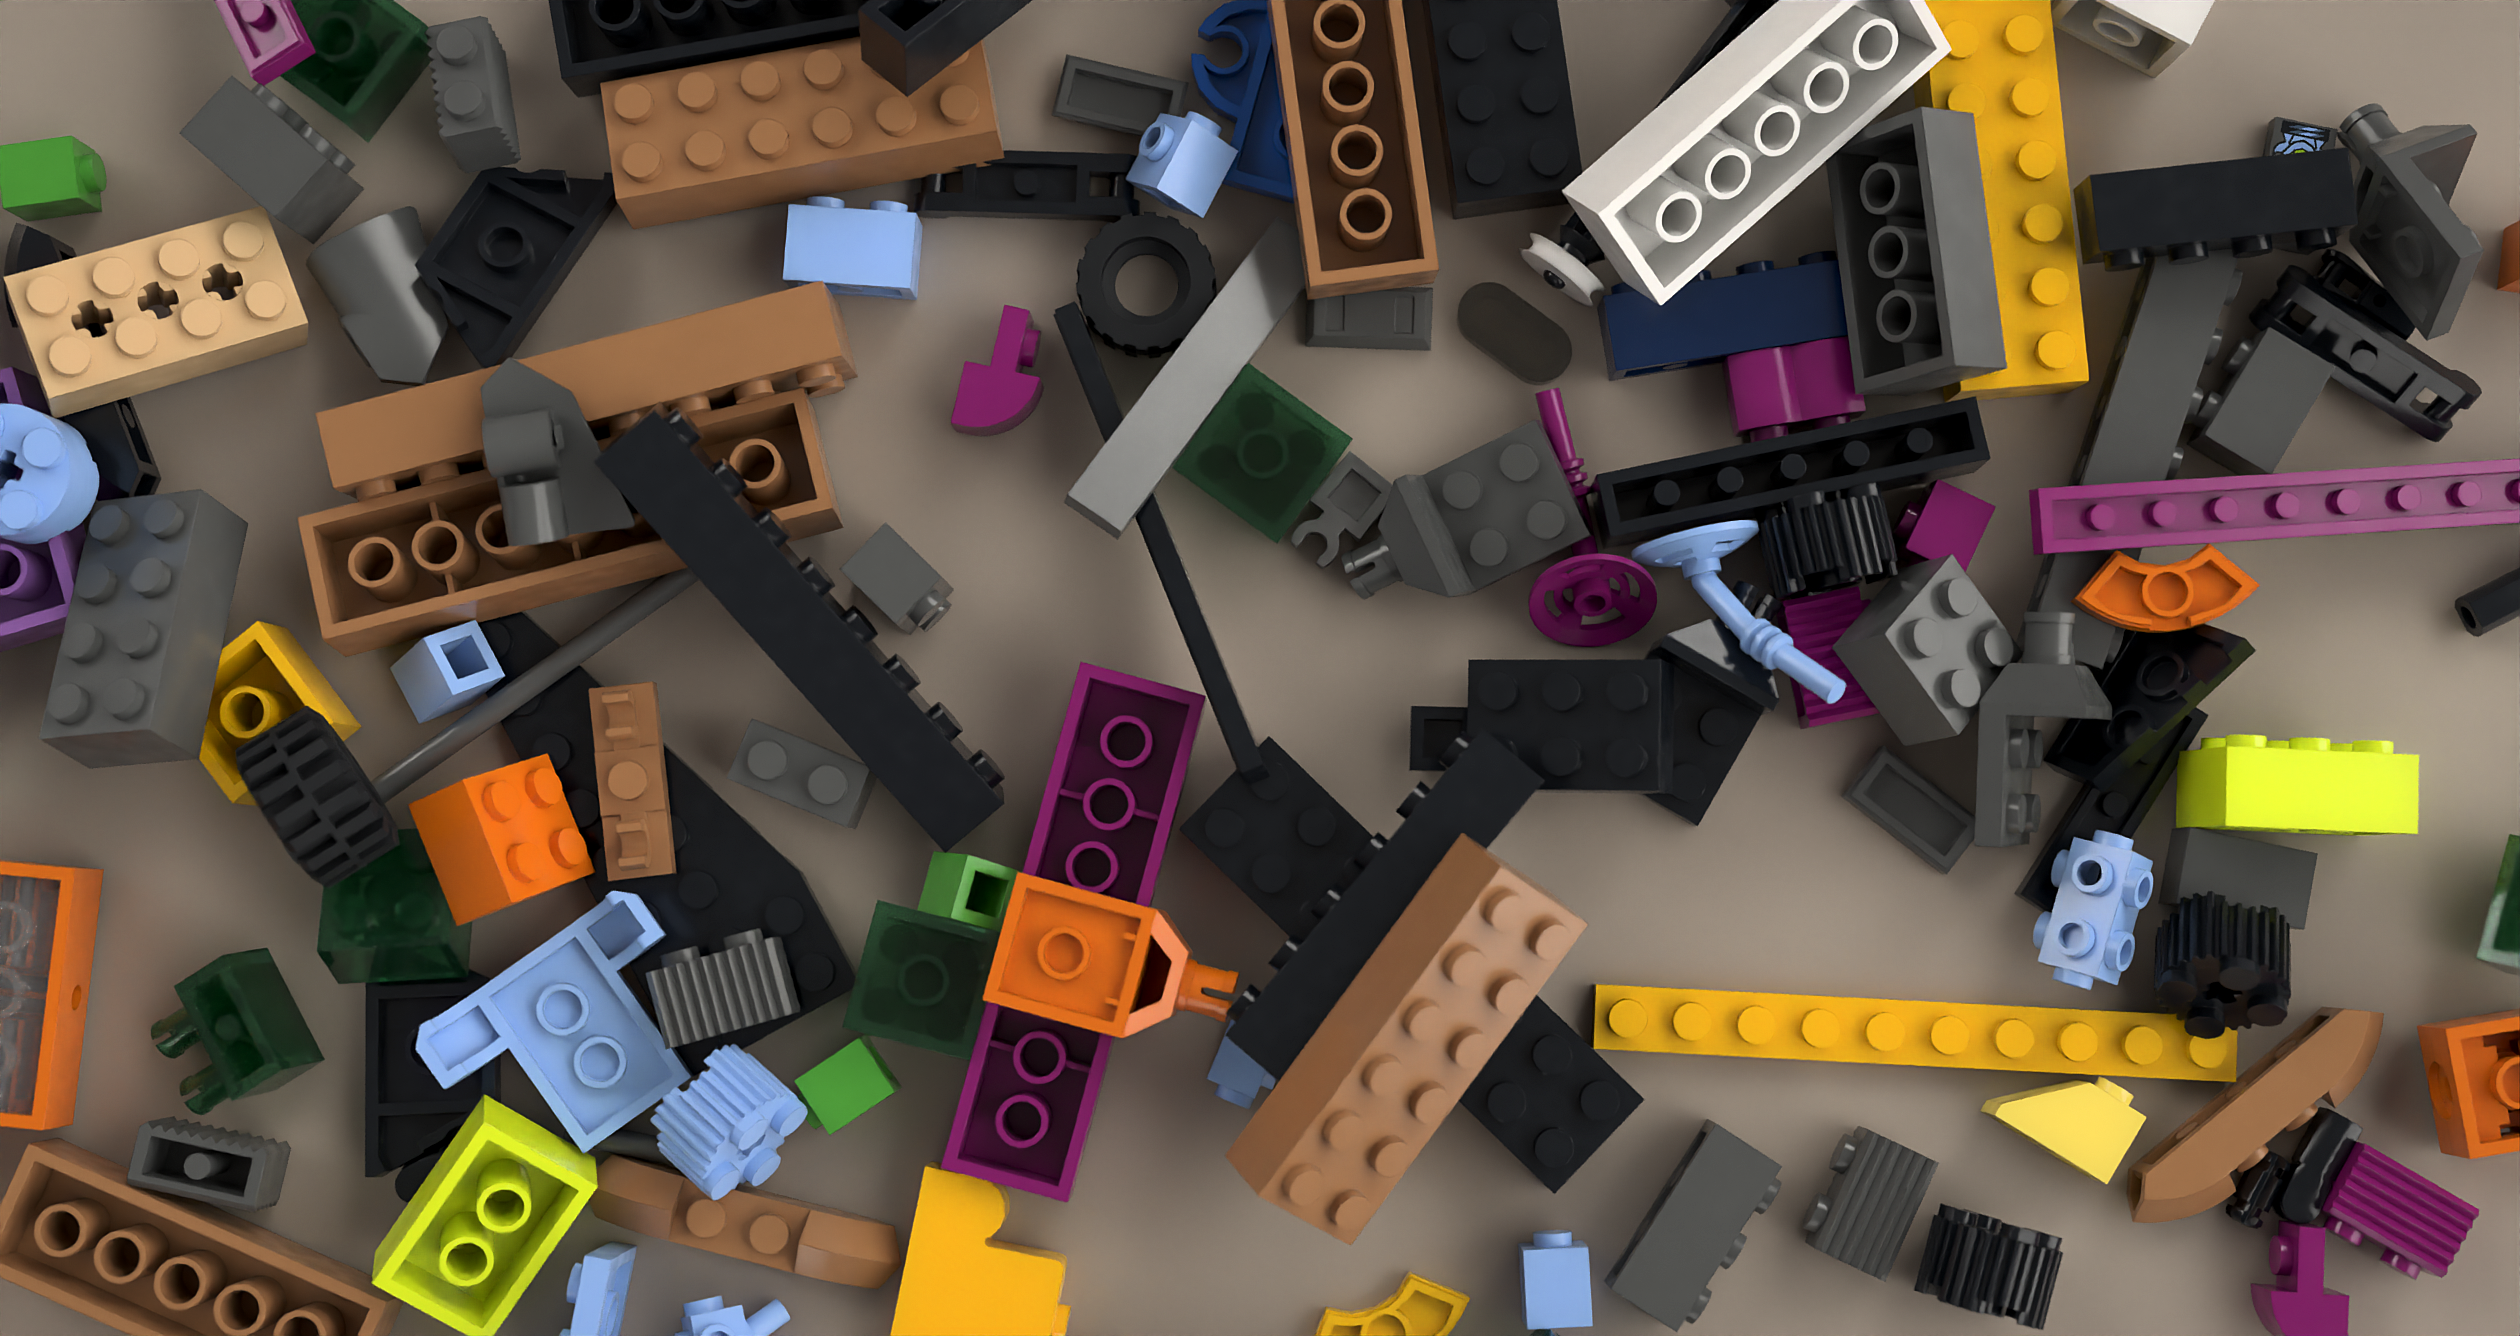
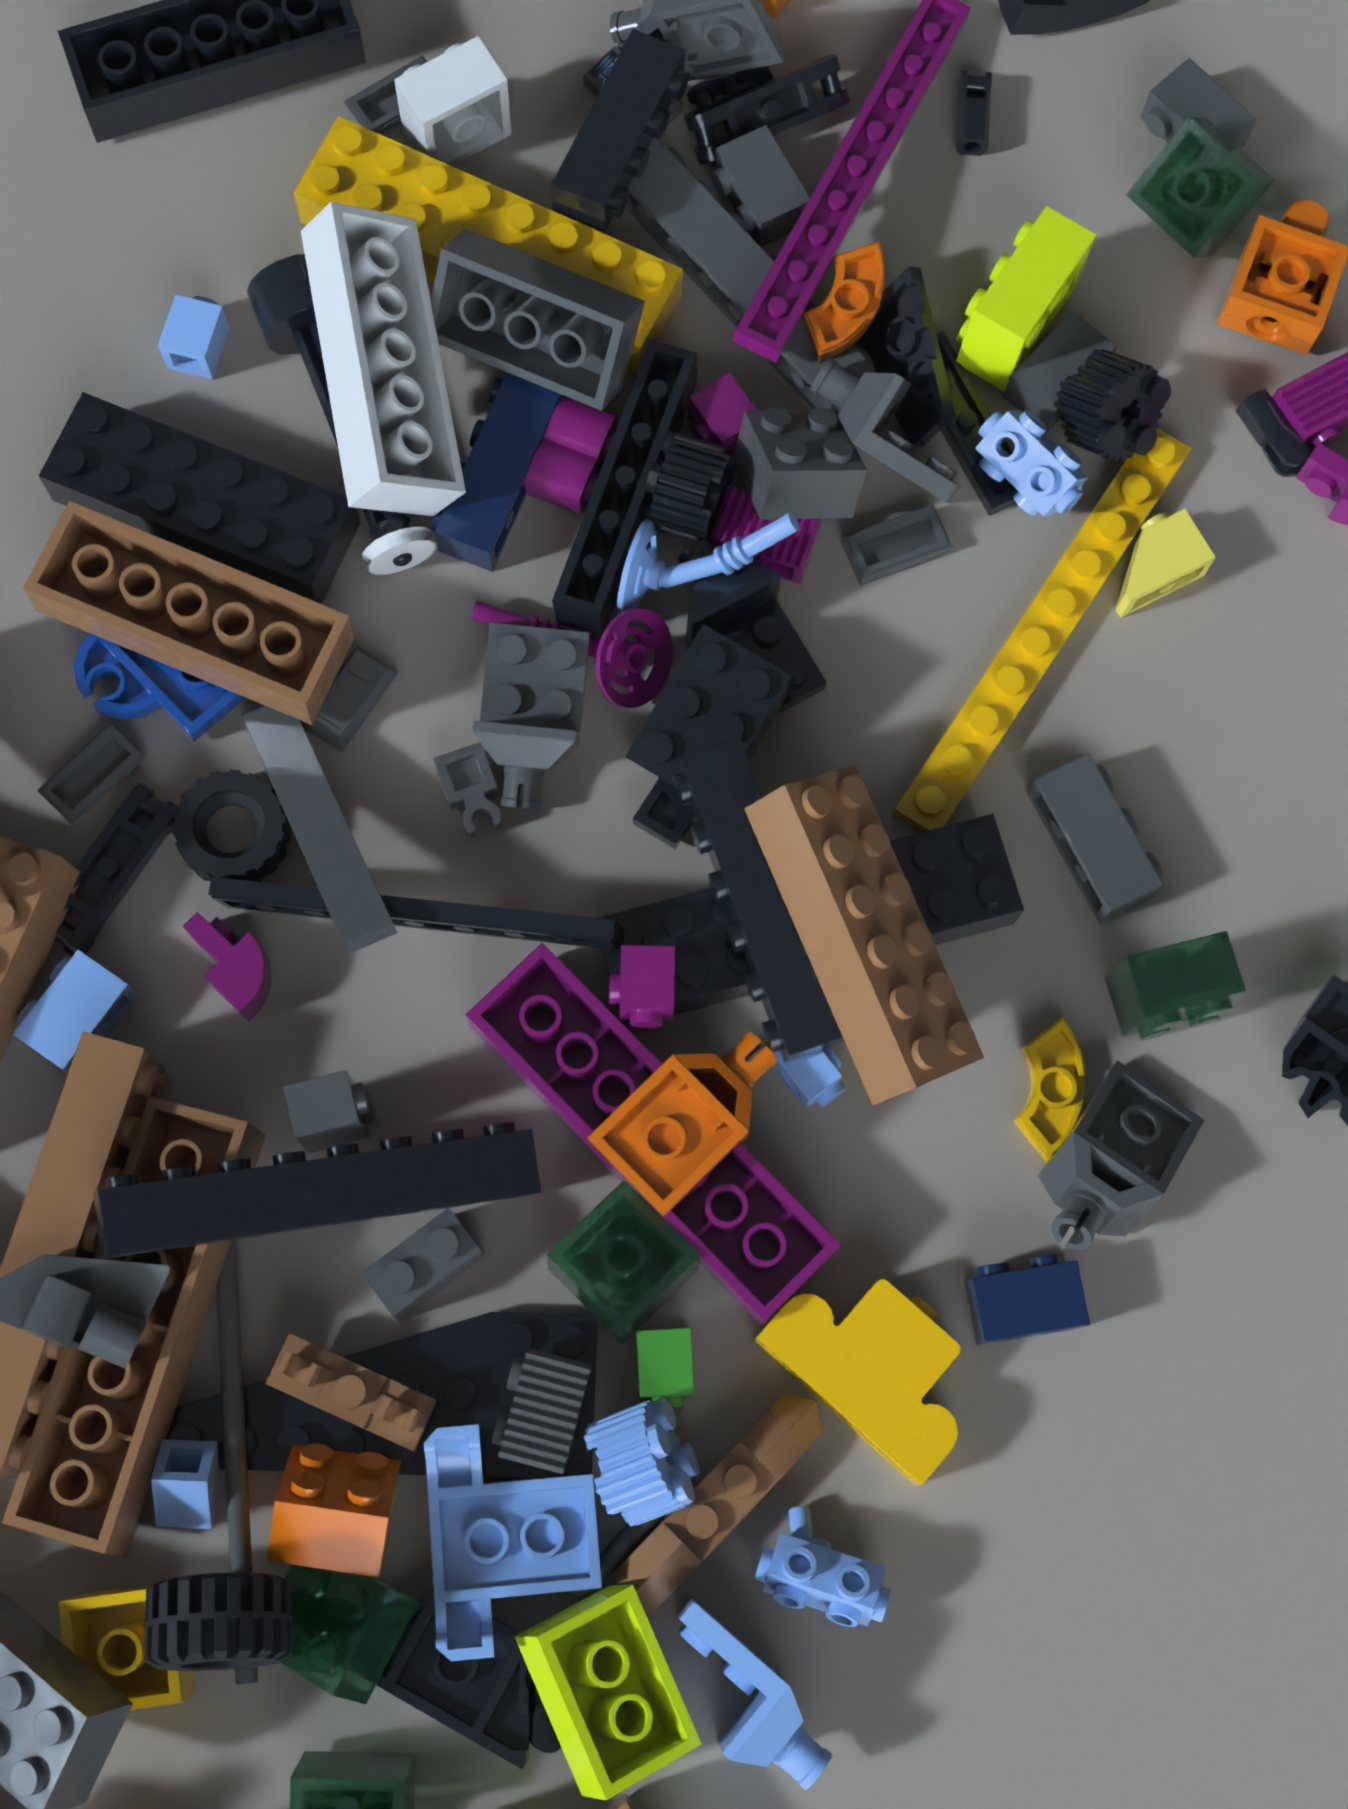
camera: 65 degrees left, 10 degrees down
(967, 889) = (577, 1188): bright green brick -> none
(1182, 162) = (164, 753): light blue brick -> none
(1215, 835) = (644, 985): none -> magenta brick
(1262, 453) = (400, 813): clear green brick -> none
(1514, 333) = (421, 611): clear smoke tile -> none
(1555, 1281) = (1083, 951): light blue brick -> none
(1868, 1201) = (1142, 716): dark grey brick -> none
(1990, 1266) = (1230, 660): black brick -> none
(2230, 1132) = (1222, 471): medium nougat brick -> none
(2258, 1190) = (1268, 475): black piece -> none

